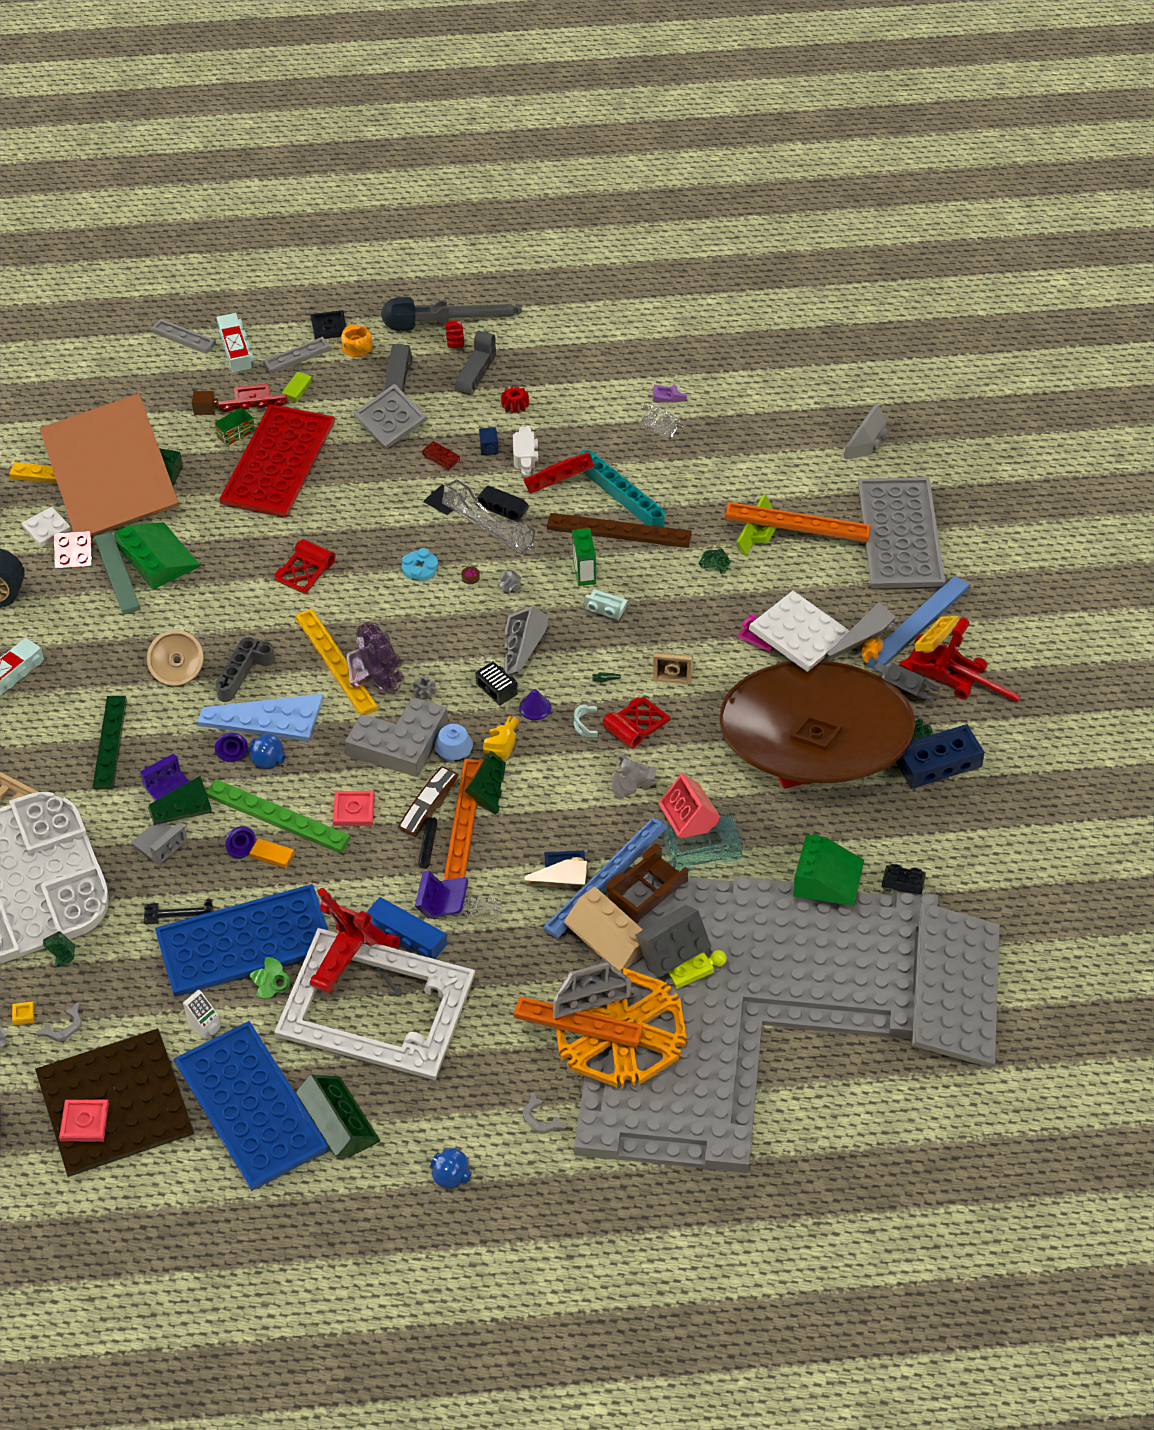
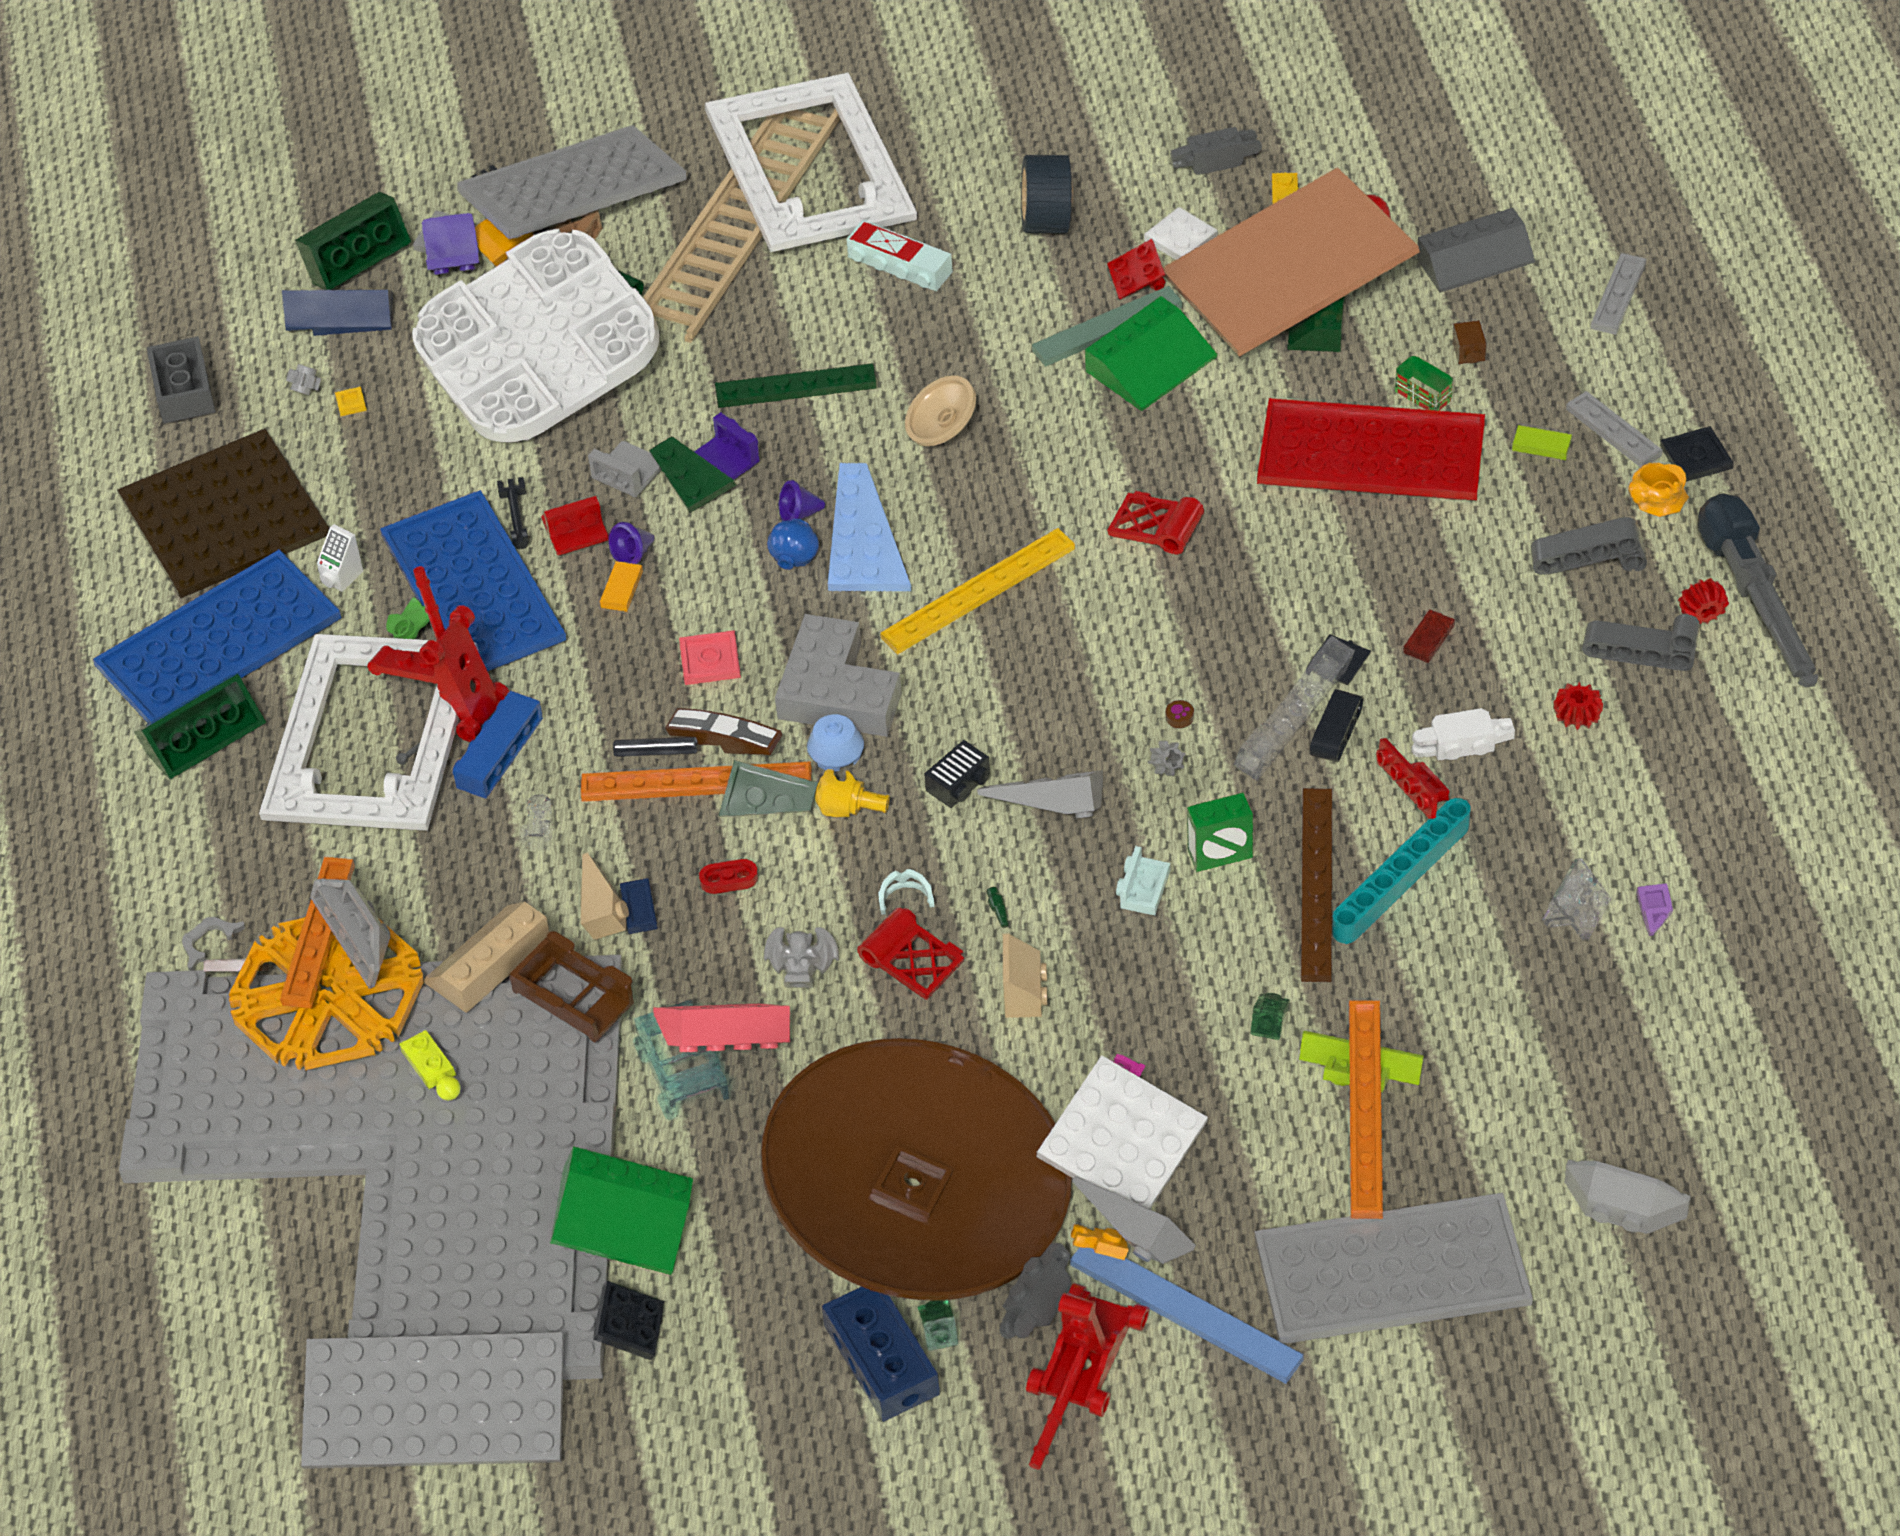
camera: 85 degrees right, 0 degrees up
(60, 947) = (445, 403): clear green bracket -> none
(62, 1035) = (335, 453): light grey helmet -> none
(84, 1120) = (183, 484): coral tile -> none
(123, 380) = (1475, 250): none -> dark grey slope
(206, 875) = (575, 525): none -> red bracket
(234, 342) = (1613, 349): light aqua brick -> none
(245, 655) = (943, 484): dark grey beam -> none
(252, 396) = (1498, 392): red bracket -> none
(278, 816) = (686, 581): bright green plate -> none
(374, 659) = (960, 617): clear purple bracket -> none
(390, 416) = (1489, 556): light grey plate -> none
(424, 557) = (1187, 638): medium azure plate -> none
(424, 688) = (935, 693): light grey gear -> none
(439, 897) = (552, 764): dark purple bracket -> none
(450, 1168) = (120, 852): blue plant -> none
(488, 441) = (1470, 687): dark blue brick -> none
(535, 706) = (926, 830): dark purple hat -> none
(553, 810) = (728, 876): none -> red plate
(574, 1094) = (228, 965): none -> tile
(616, 865) = (612, 952): medium blue tile -> none
(673, 940) = (457, 1019): dark grey brick -> none
(936, 634) = (1145, 1326): yellow plate -> none

